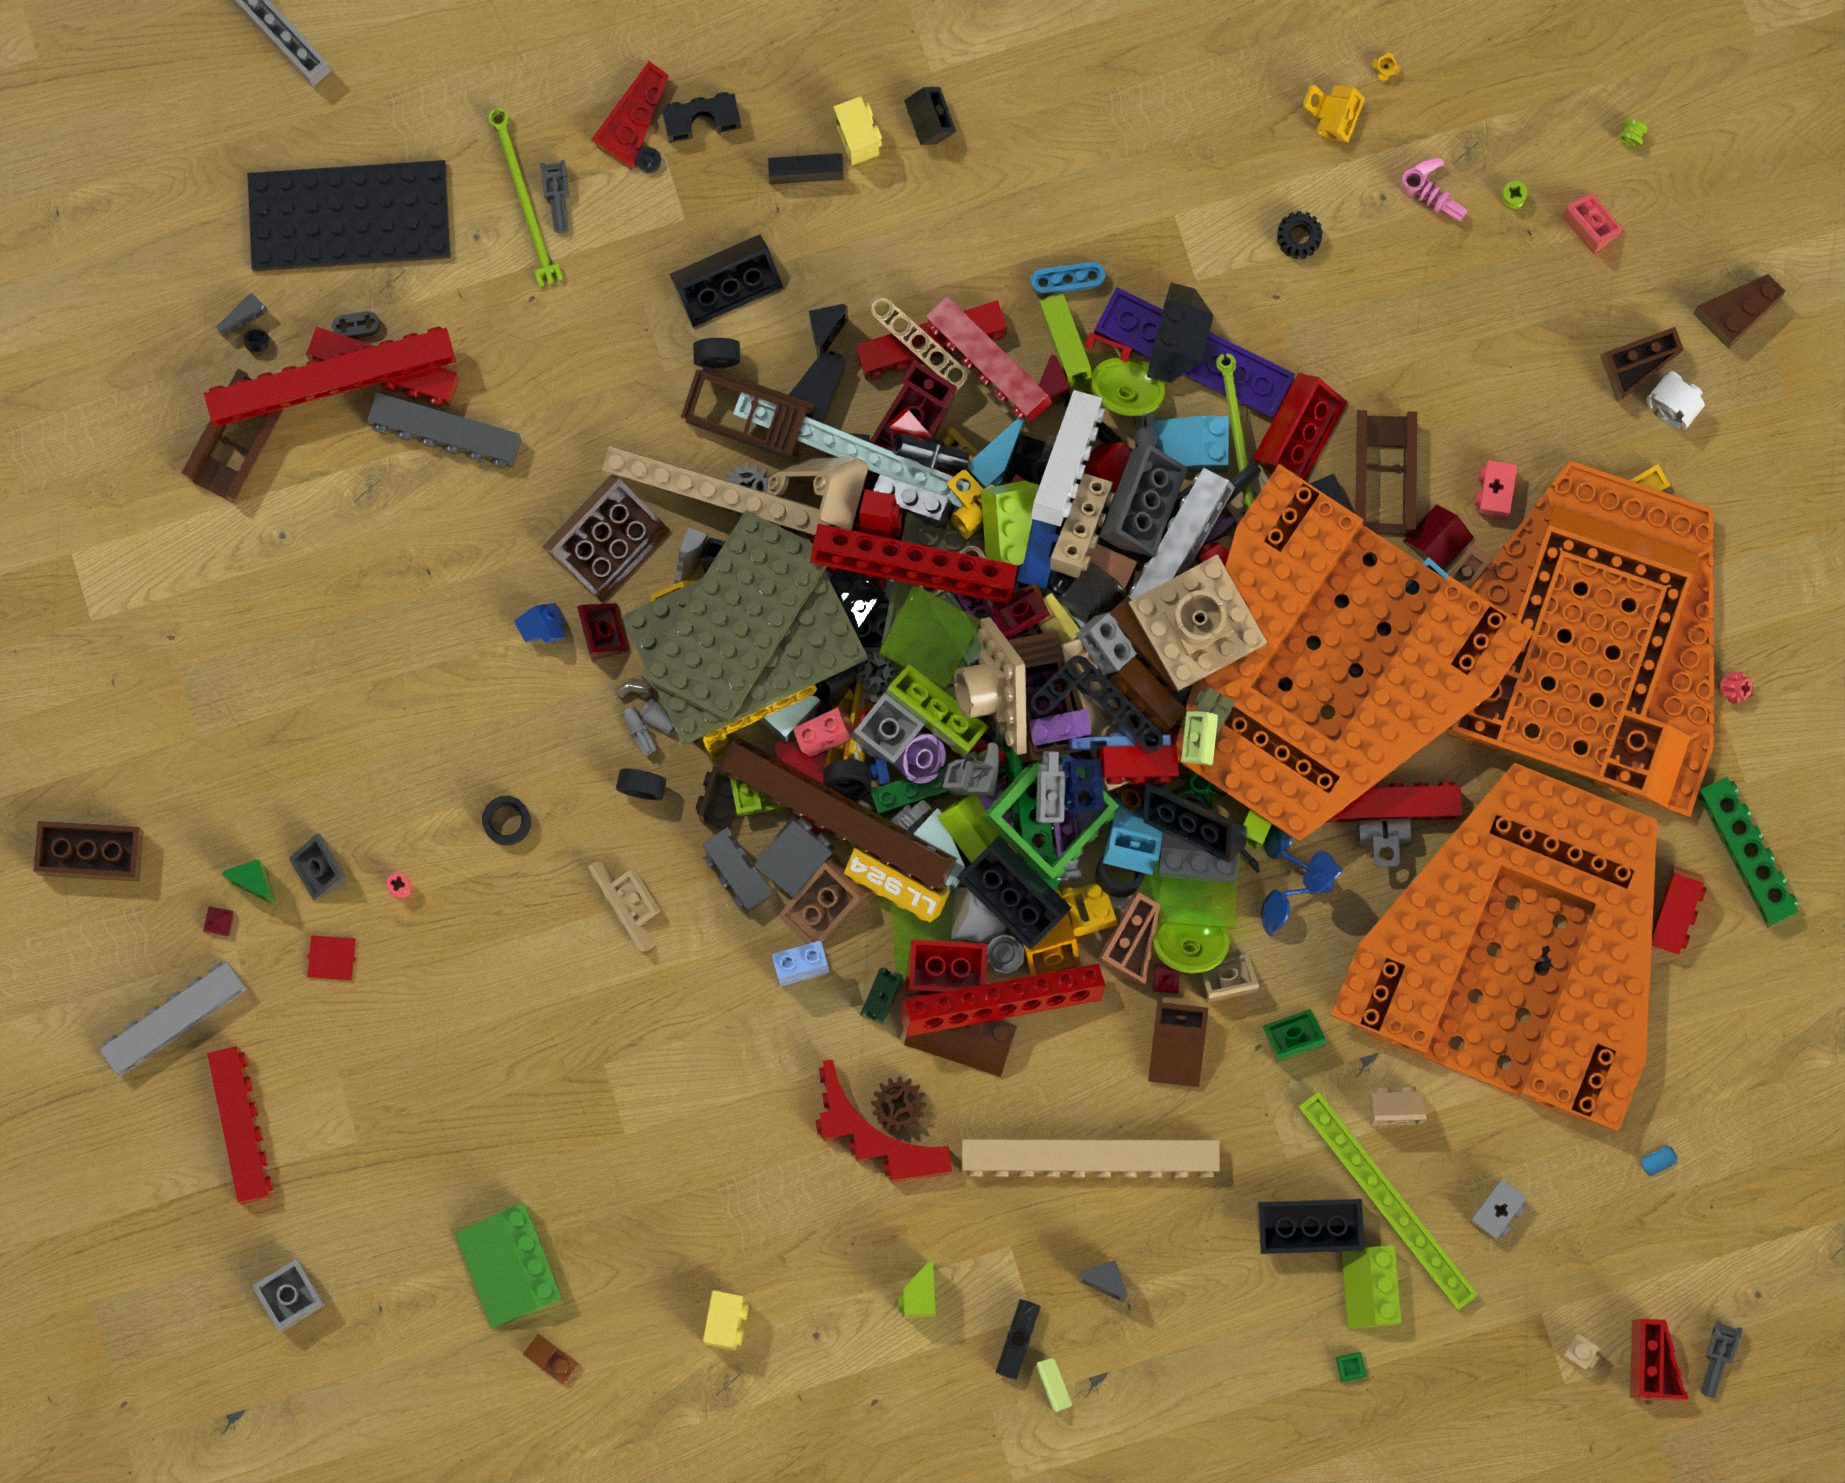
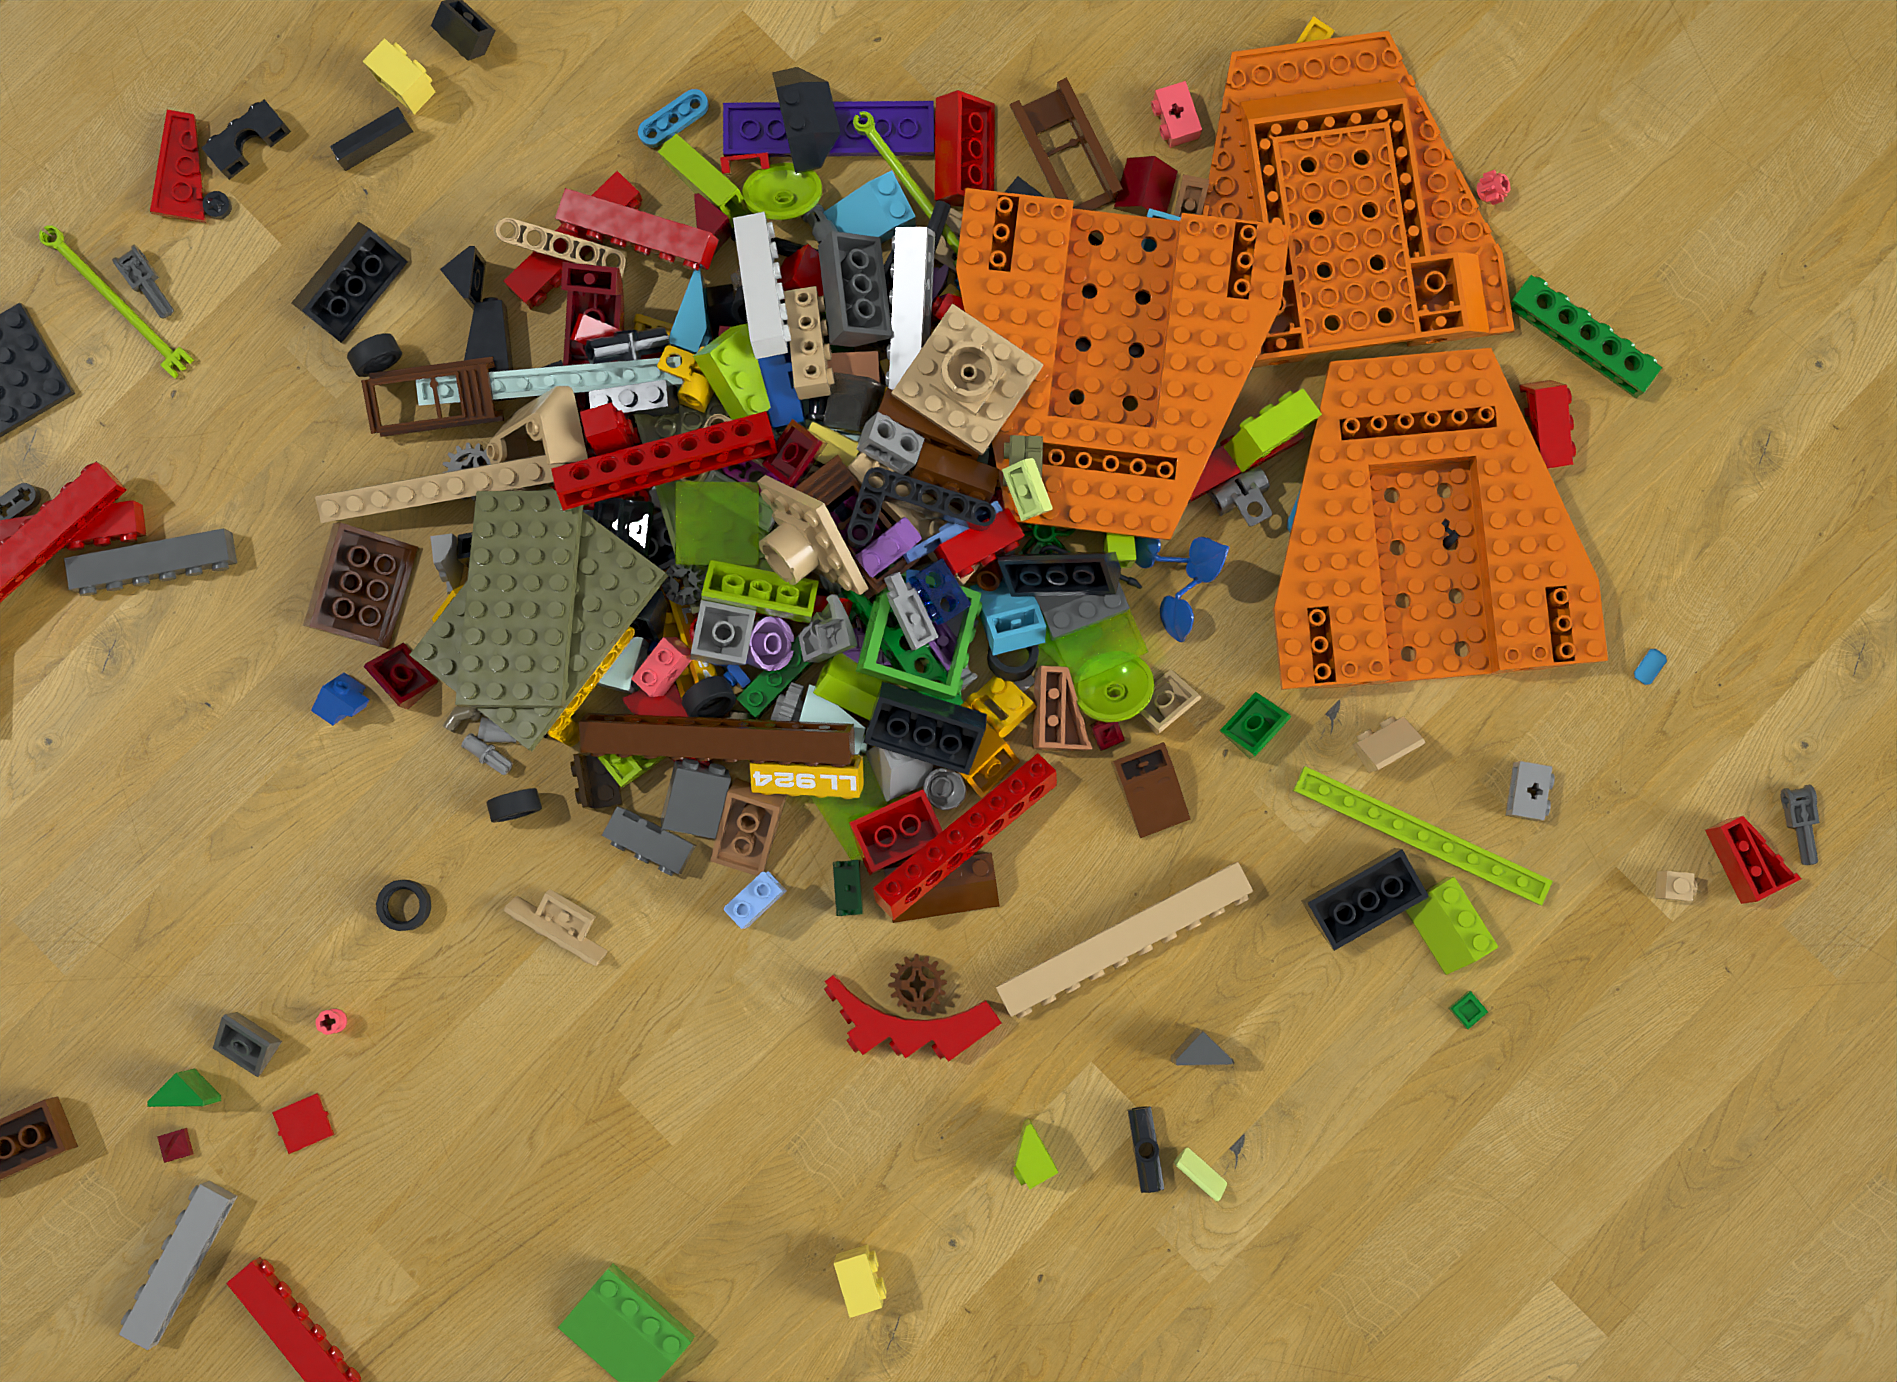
camera: 30 degrees left, 5 degrees up
(1435, 792) = (1272, 428): none -> lime wedge

